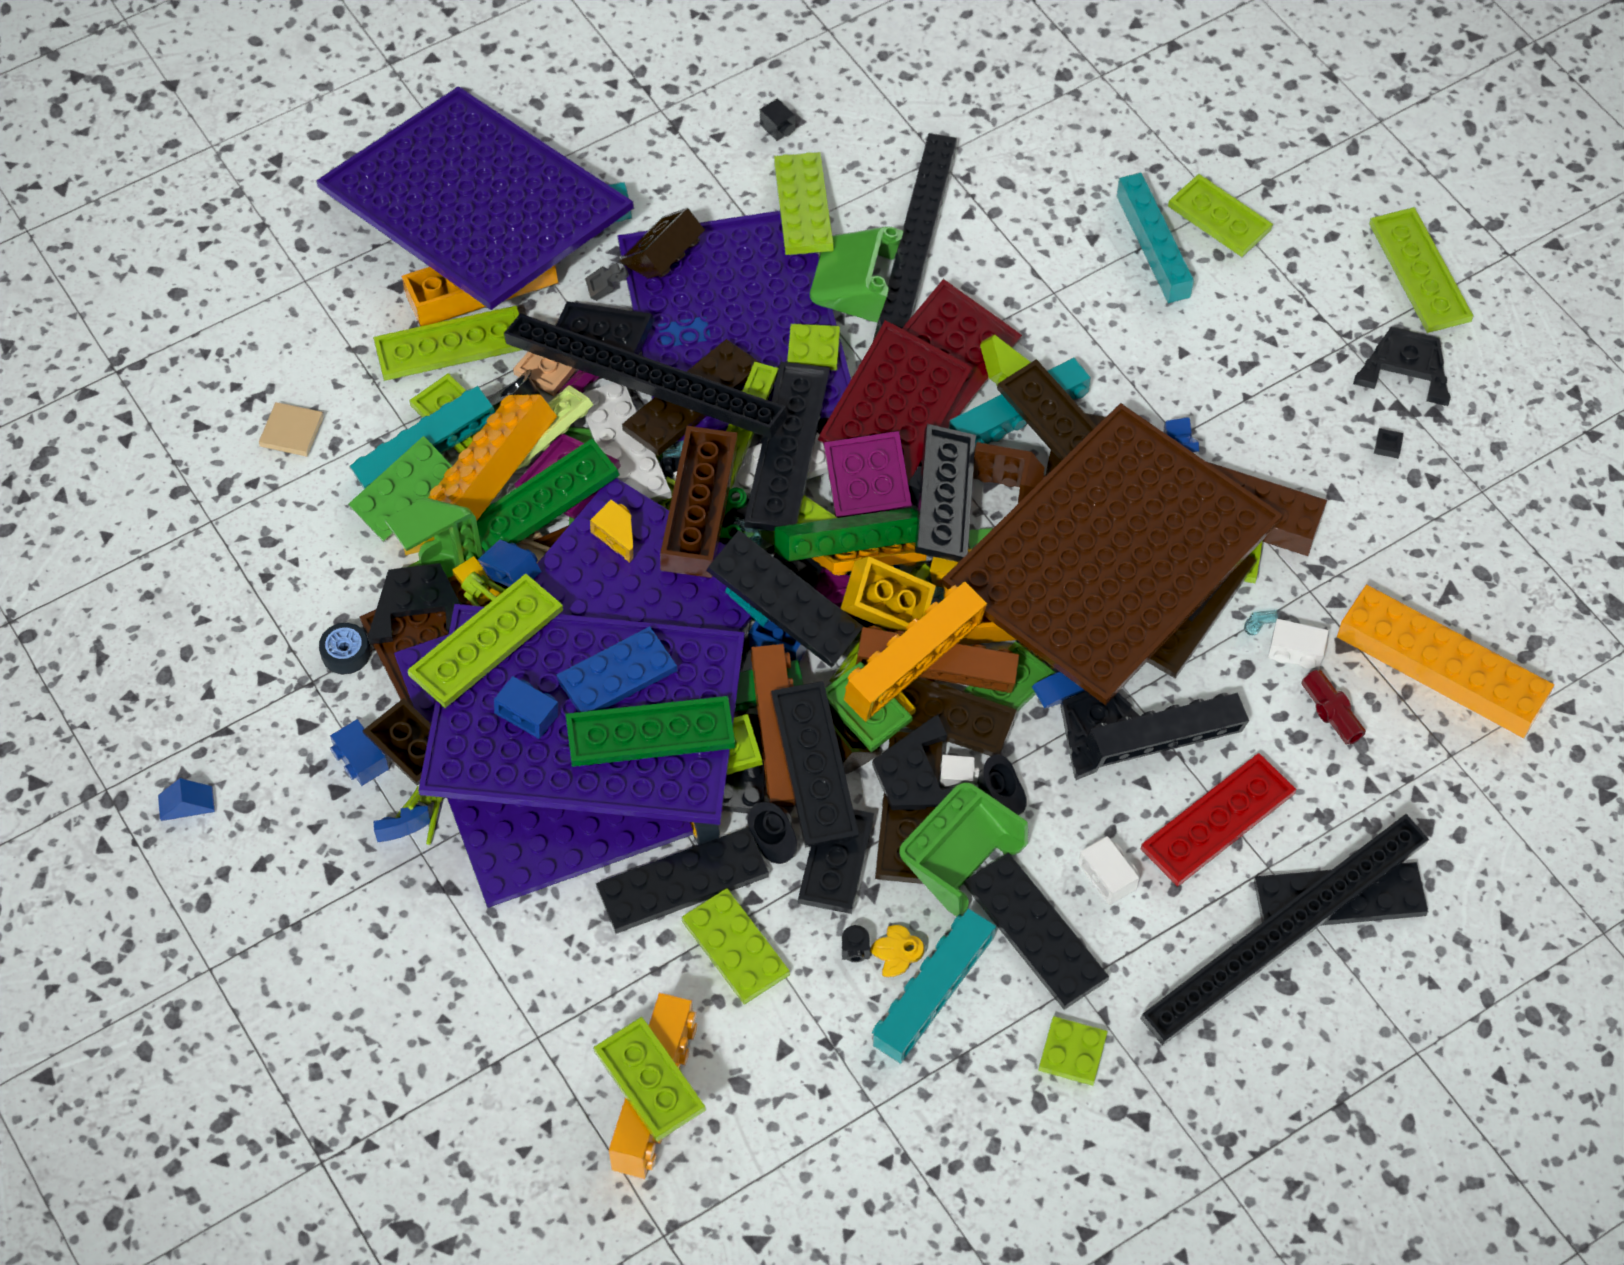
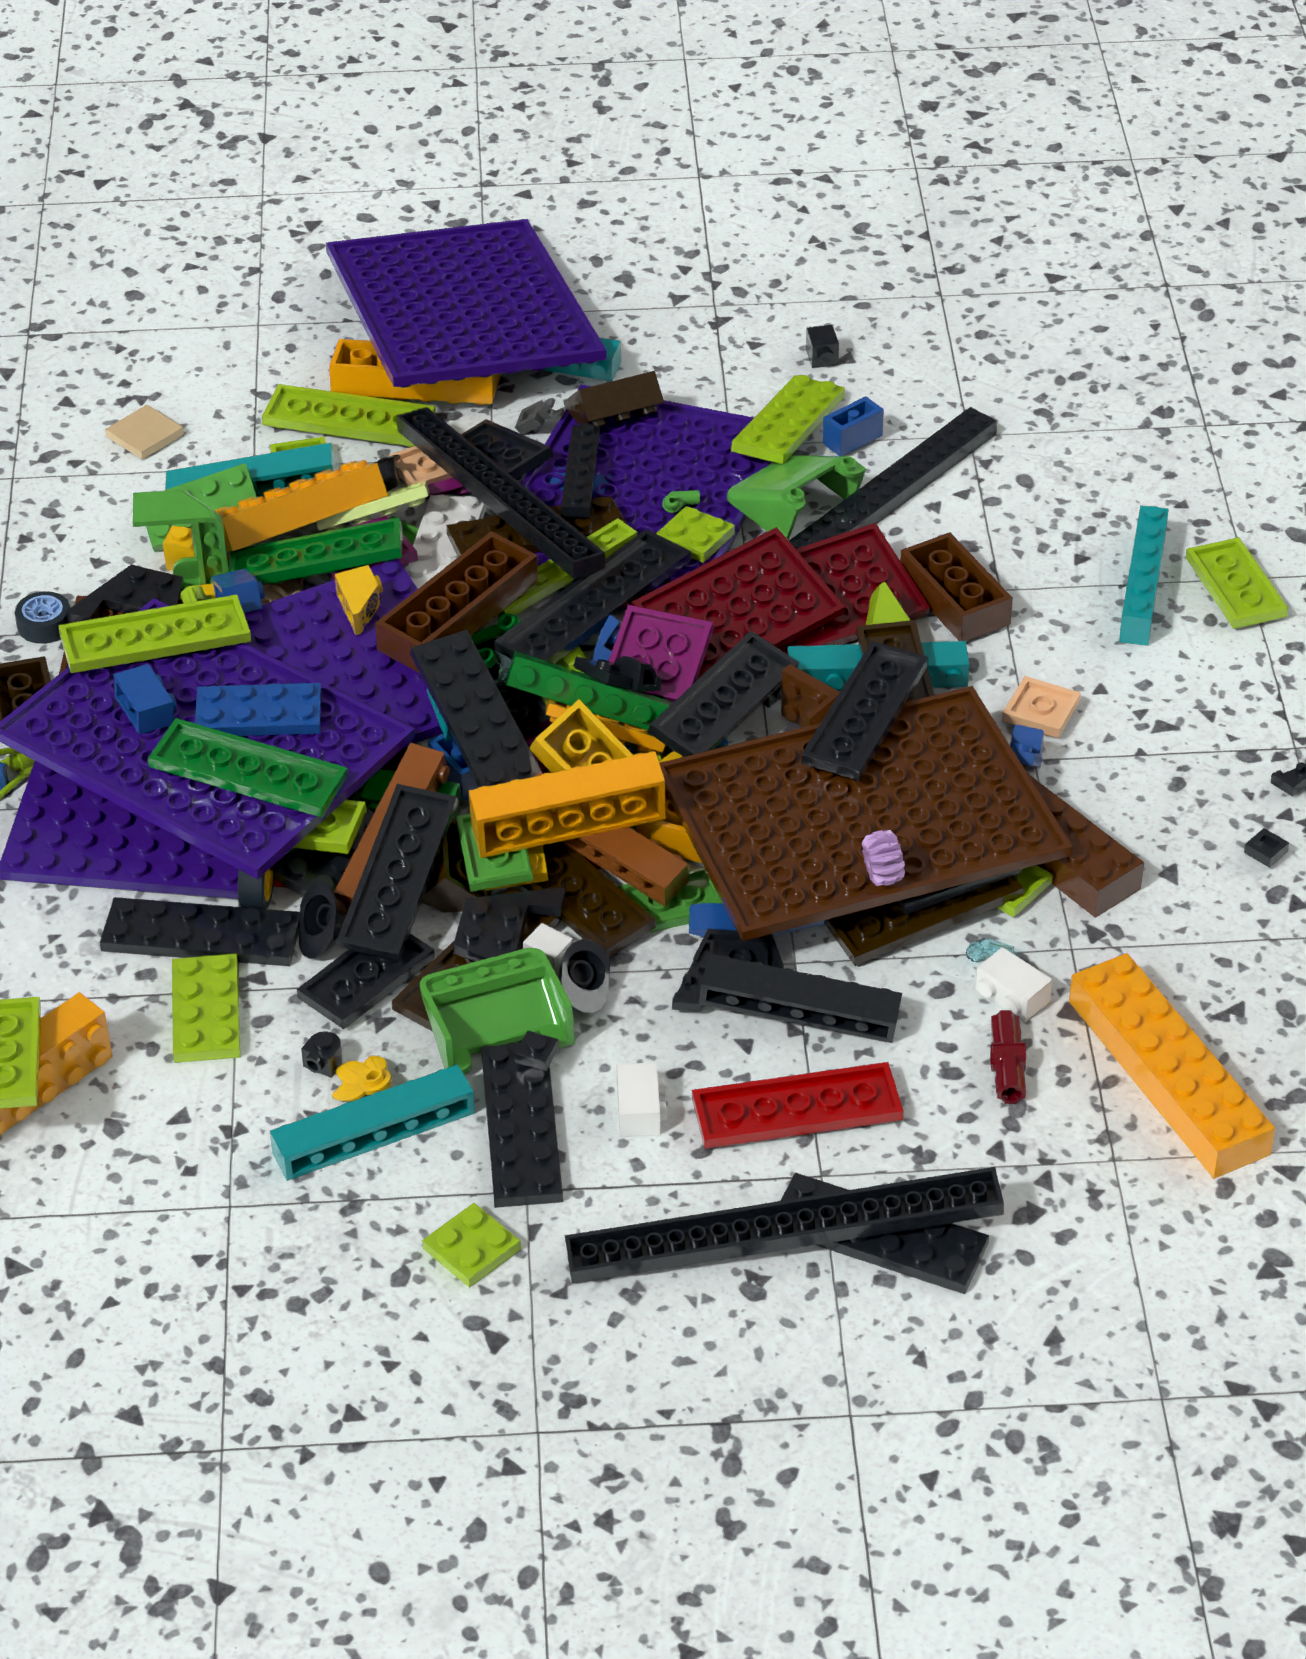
camera: 30 degrees right, 15 degrees down
(689, 326) = (580, 471): none -> black plate
(778, 319) = (677, 499): none -> bright green arm
(818, 491) = (607, 635): none -> blue slope
(844, 512) = (603, 671): none -> black plate
(856, 189) = (853, 426): none -> blue brick
(868, 503) = (642, 673): none -> black brick
(1013, 866) = (536, 1050): none -> black plate
(1033, 308) = (957, 587): none -> reddish brown brick
(1065, 463) = (864, 710): none -> black plate
(1157, 389) = (1041, 706): none -> light nougat plate
(1173, 592) = (883, 857): none -> lavender gear

